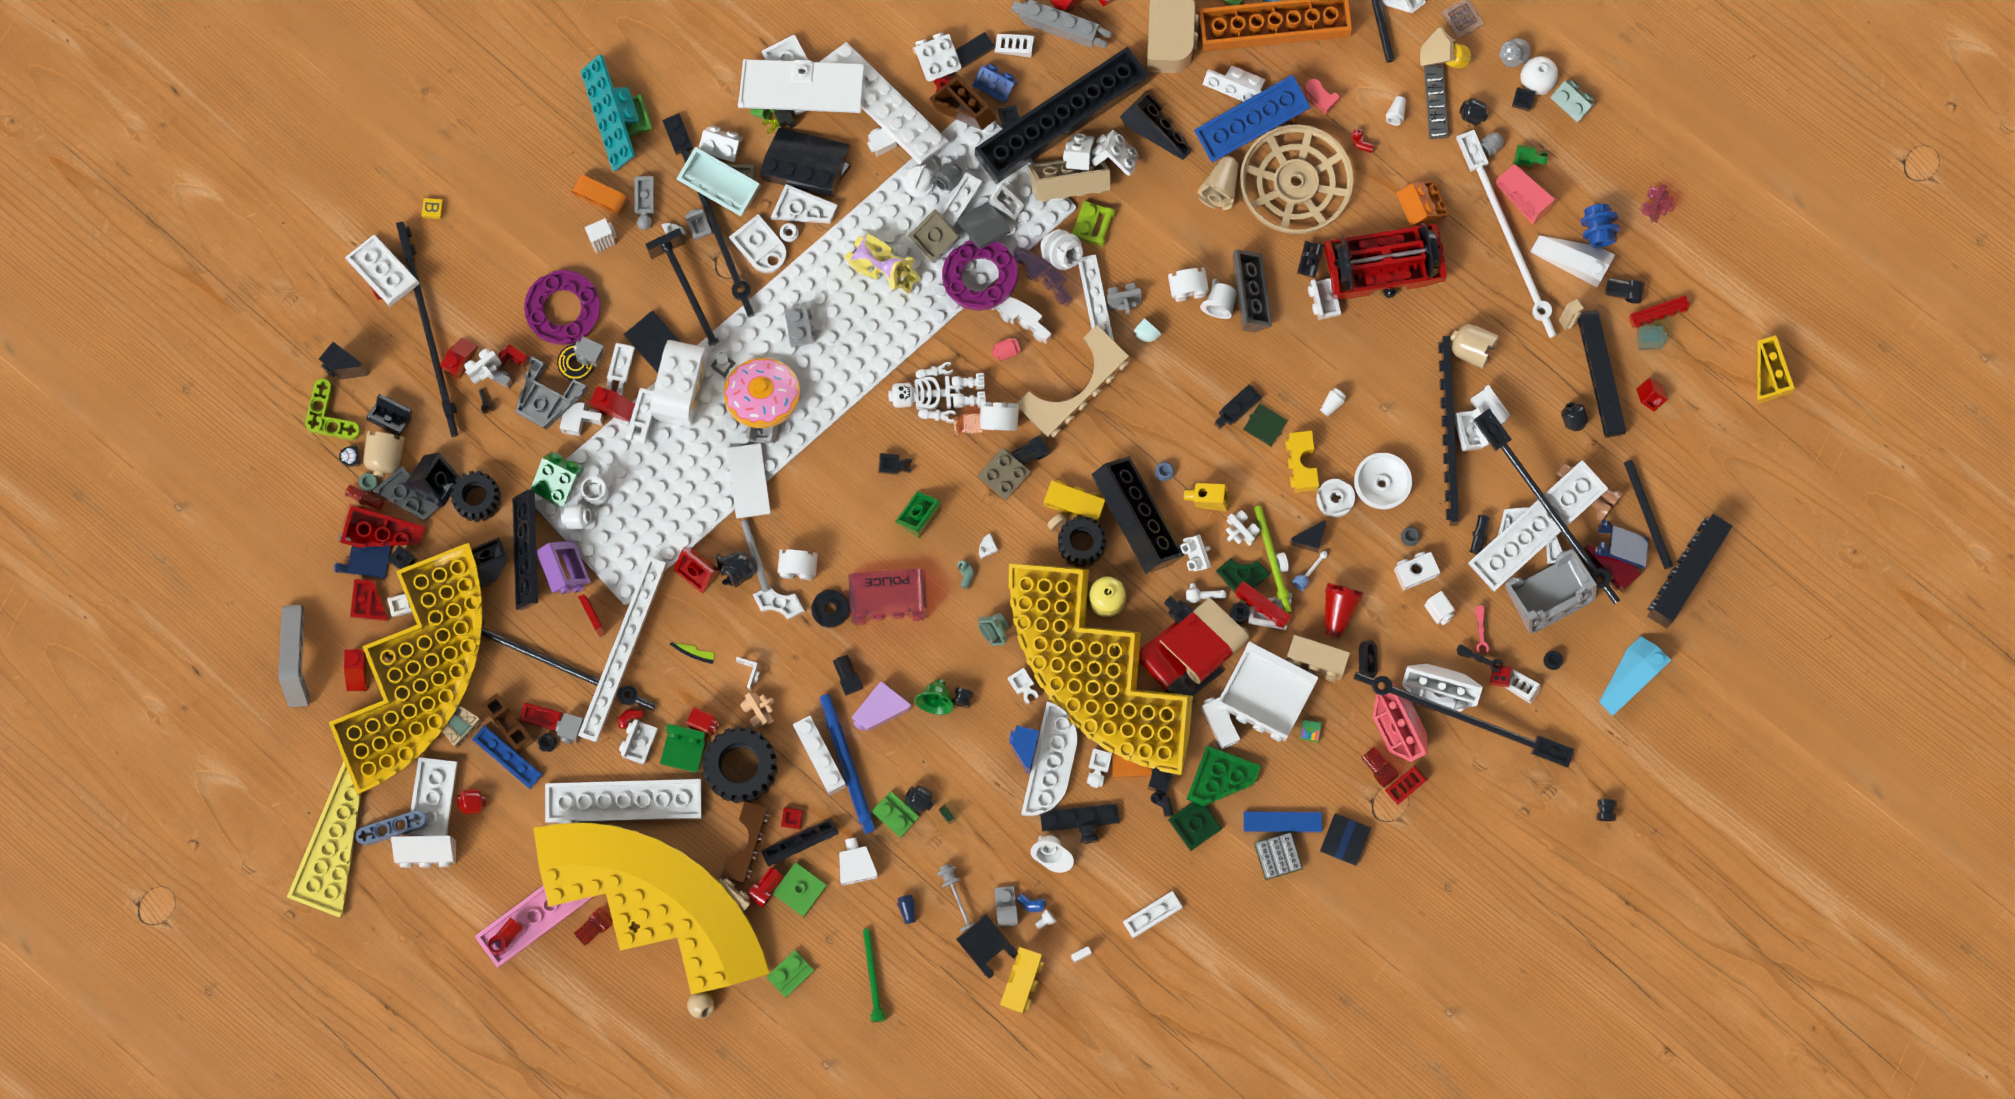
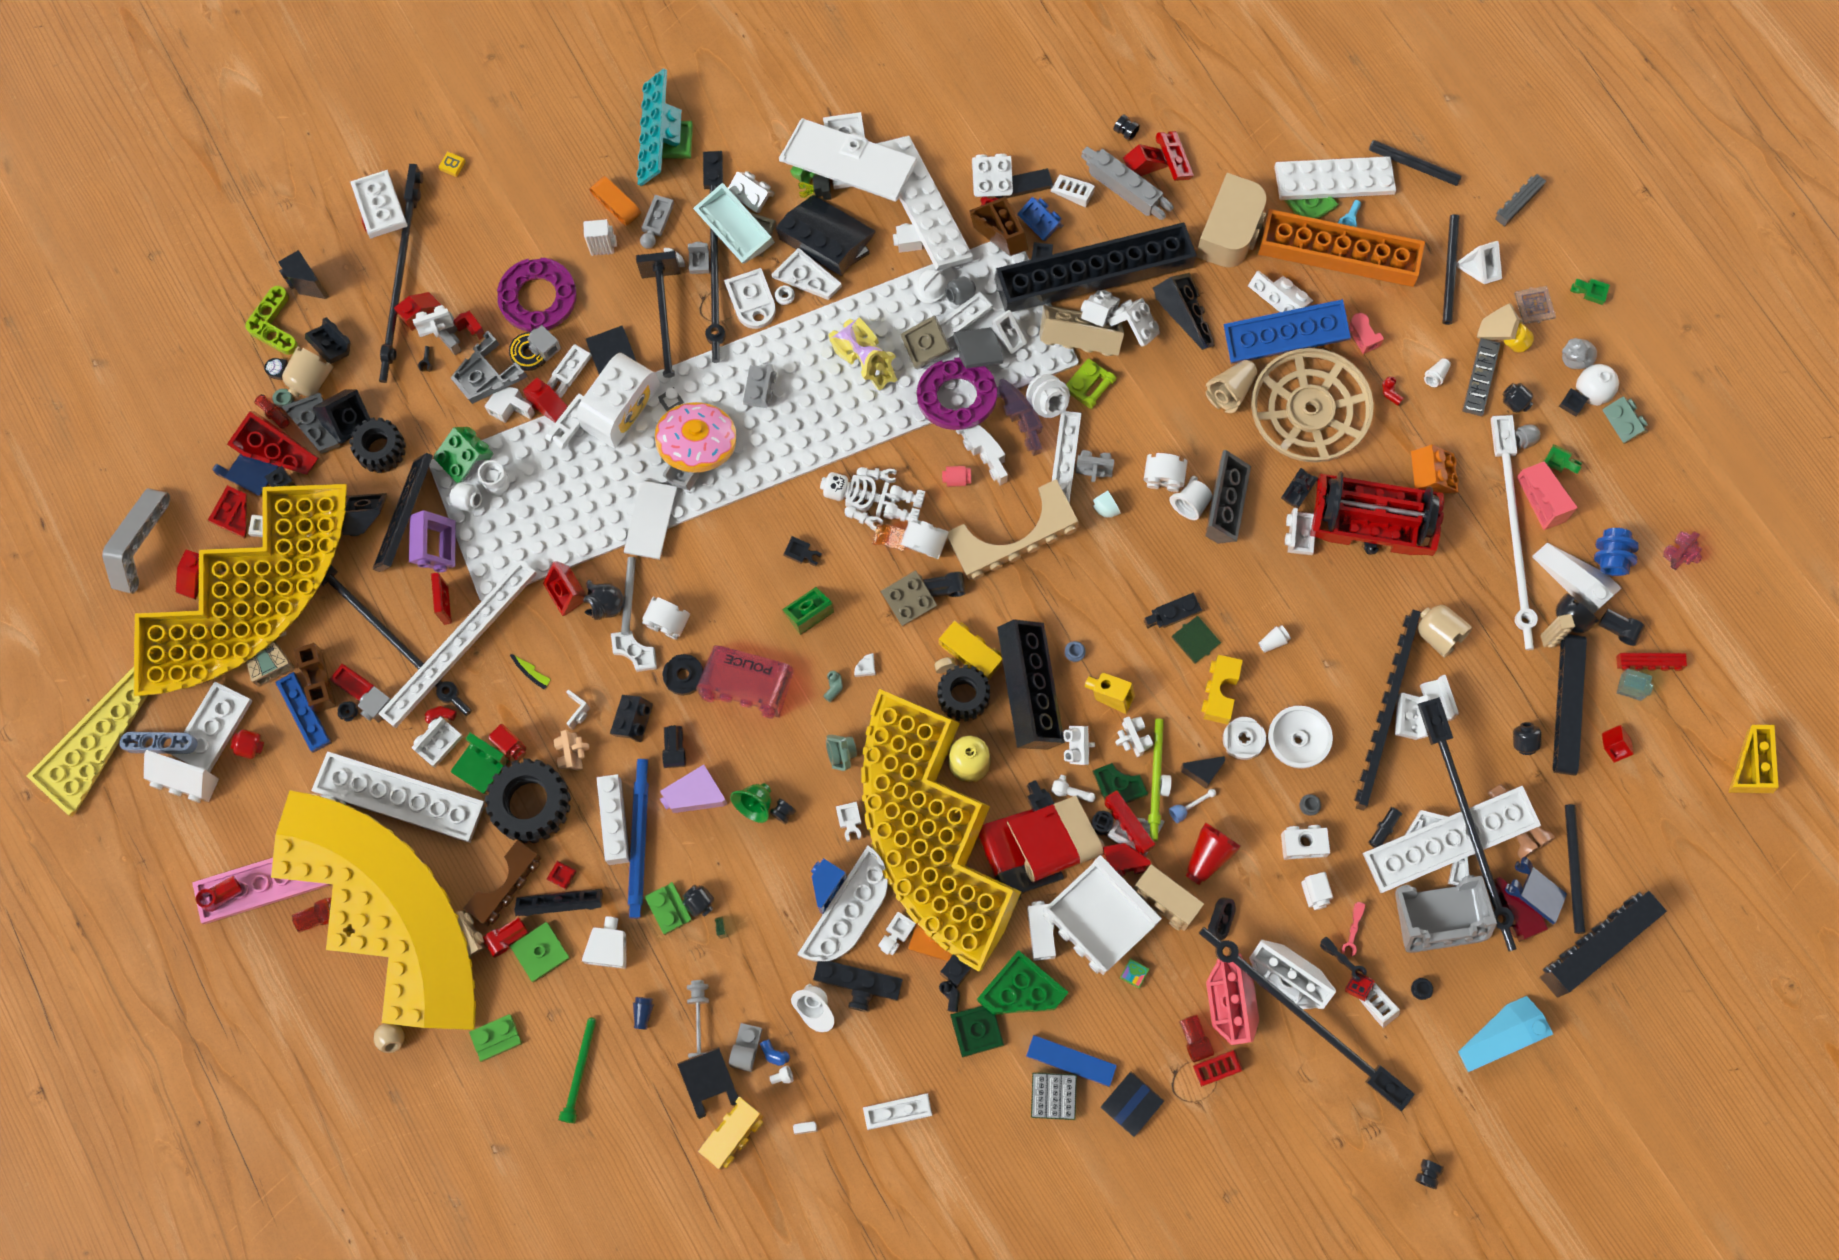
camera: 20 degrees right, 5 degrees down
(800, 662) = (631, 717): none -> black bracket
(1270, 637) = (1125, 859): none -> red slope
(1583, 292) = (1582, 617): none -> black cylinder

